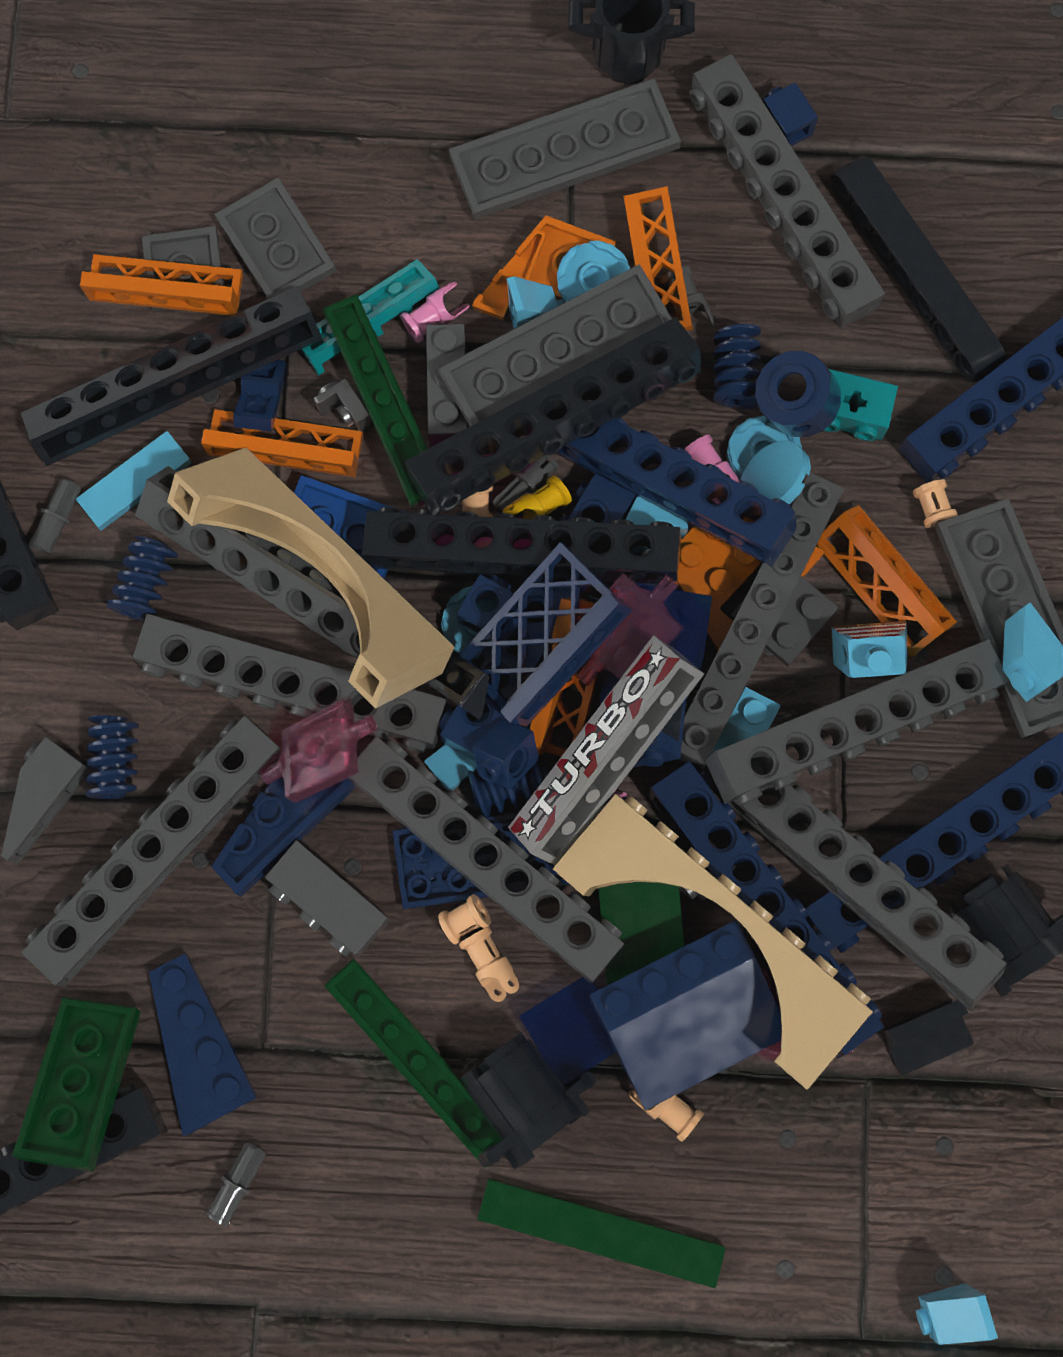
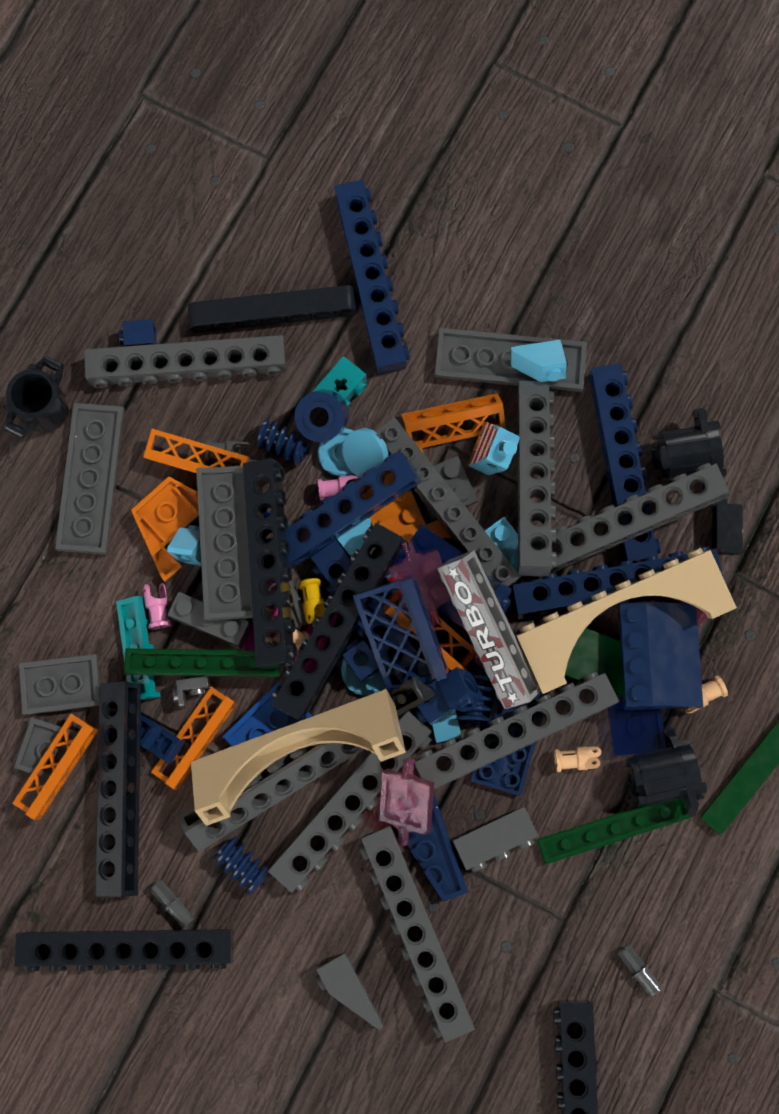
camera: 65 degrees left, 0 degrees up
(77, 1084) = (540, 1041): dark green tile -> none
(111, 757) = (346, 933): dark blue piece -> none
(125, 485) = (172, 844): medium azure tile -> none
(199, 1054) = (550, 959): dark blue wing -> none
(464, 919) = (544, 761): light nougat bush -> none
(588, 267) = (181, 500): medium azure tile -> none
(935, 490) = (417, 366): light nougat bush -> none

